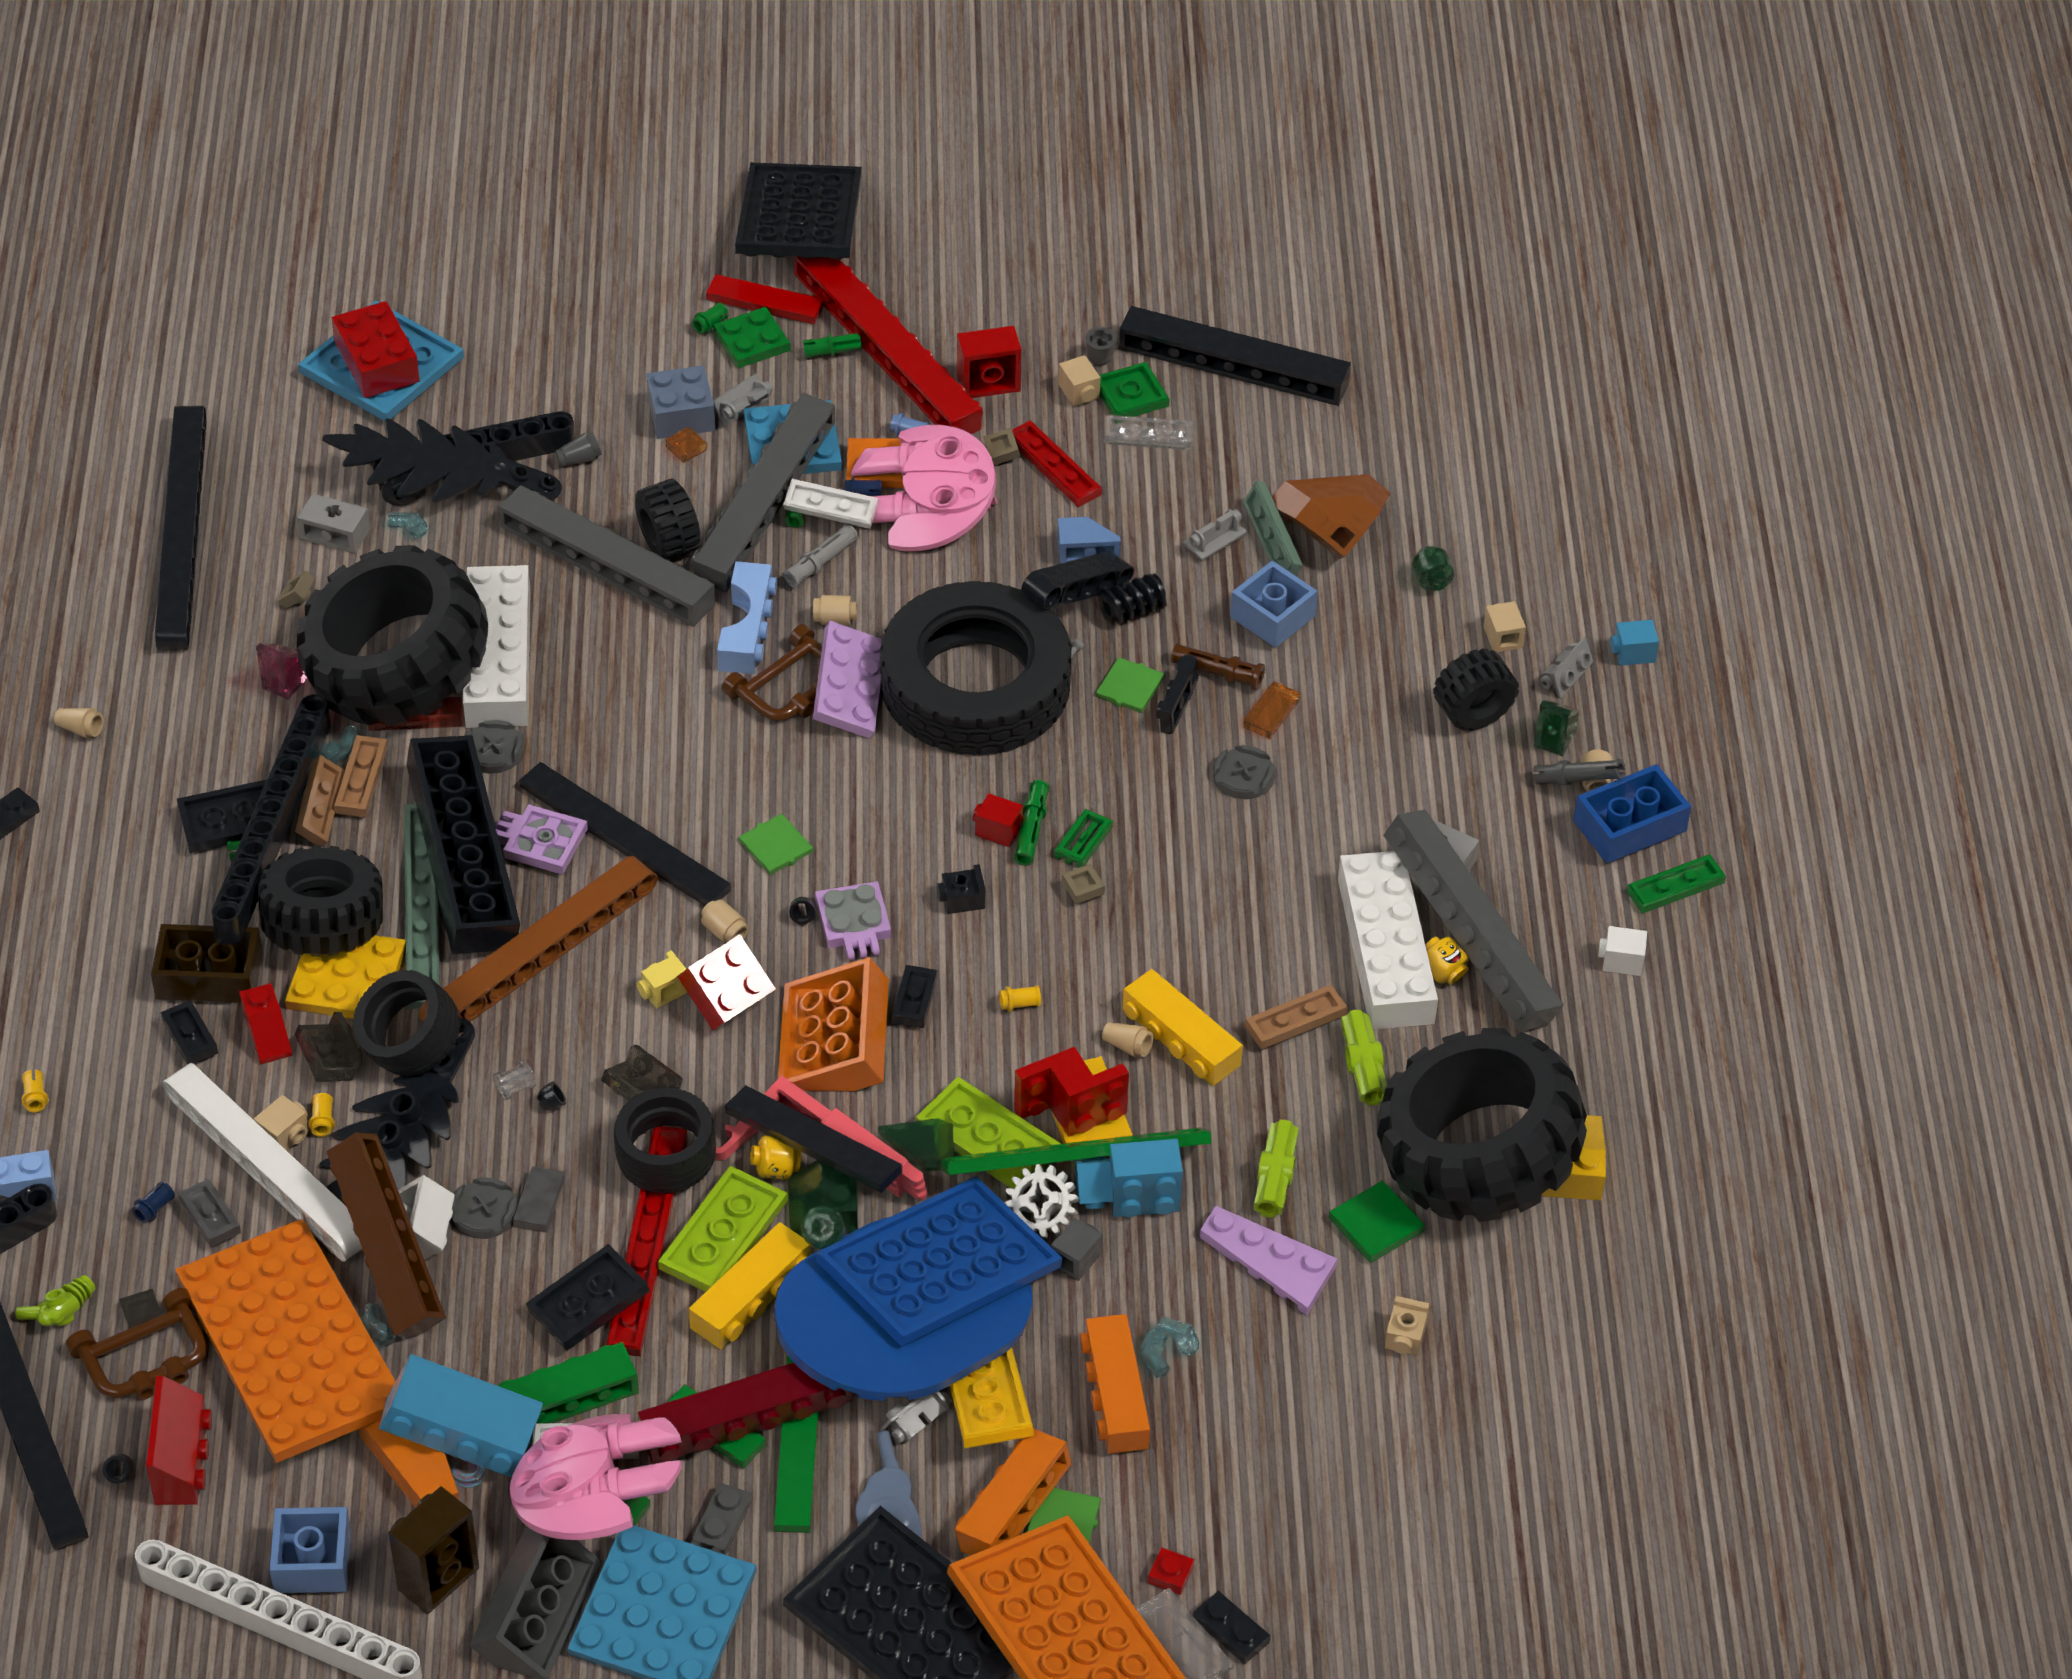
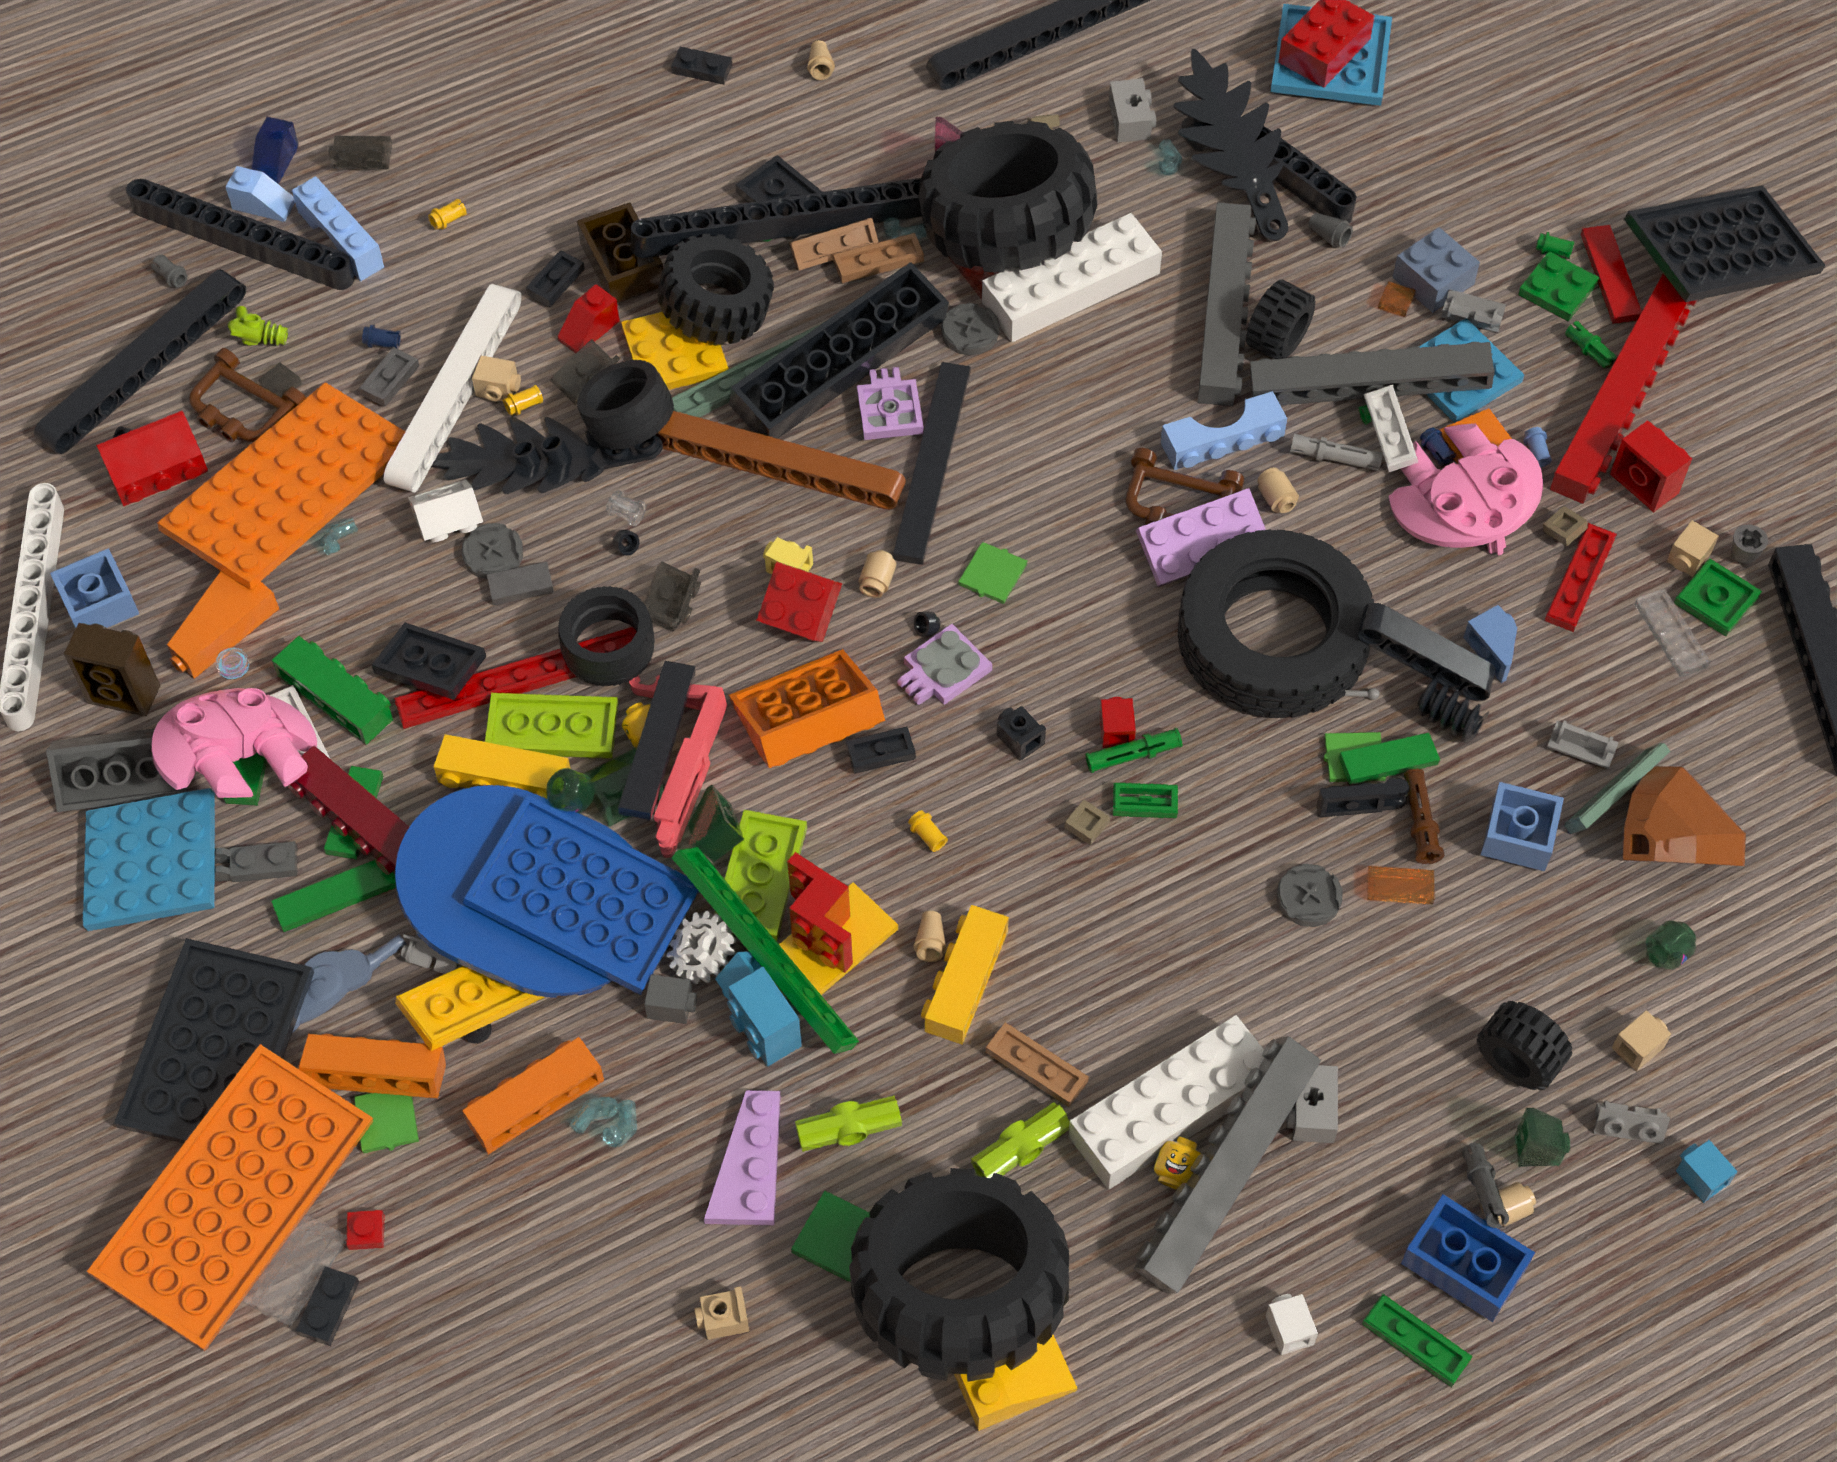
camera: 65 degrees right, 10 degrees up
(385, 1235) = (399, 490): reddish brown brick -> none
(460, 1415) = (242, 624): dark azure slope -> none
(1149, 661) = (1389, 758): none -> green tile

